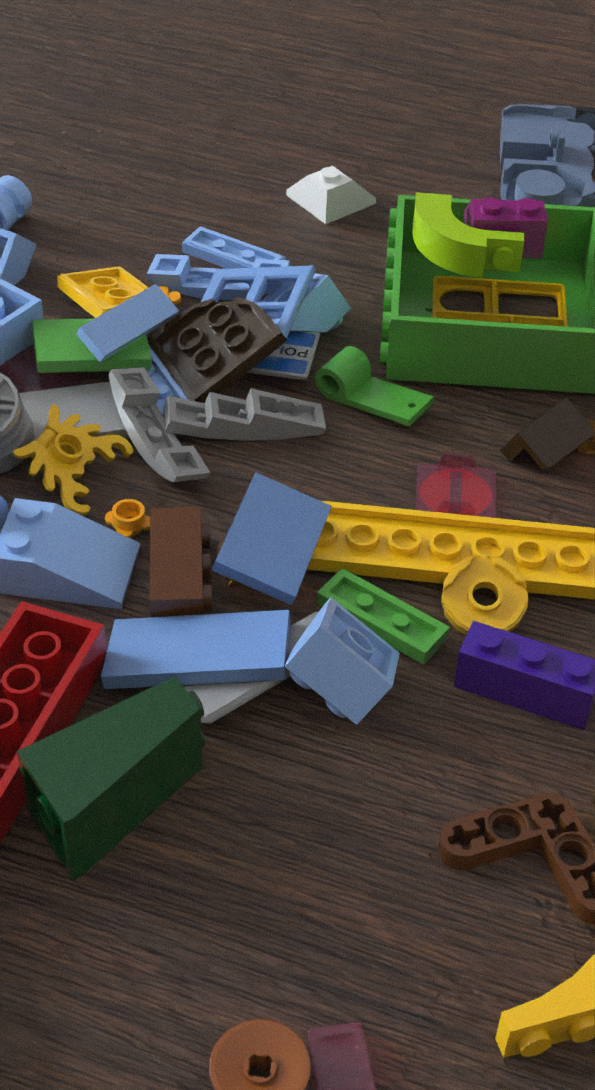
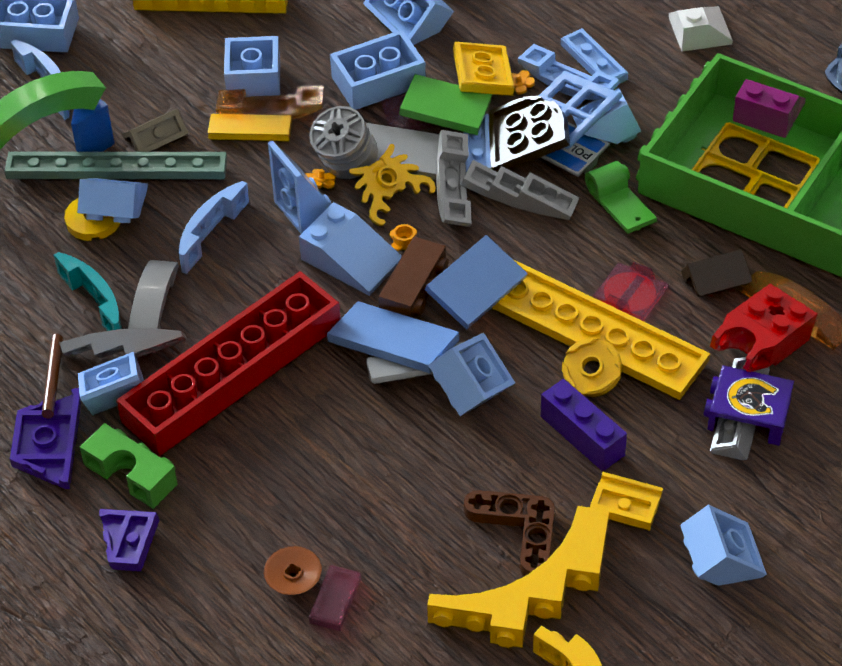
camera: 30 degrees right, 5 degrees up
(111, 771) = (302, 390): dark green slope -> none
(127, 322) = (473, 96): light blue tile -> none
(386, 615) = (521, 356): bright green plate -> none
(460, 246) = (722, 112): lime arch -> none

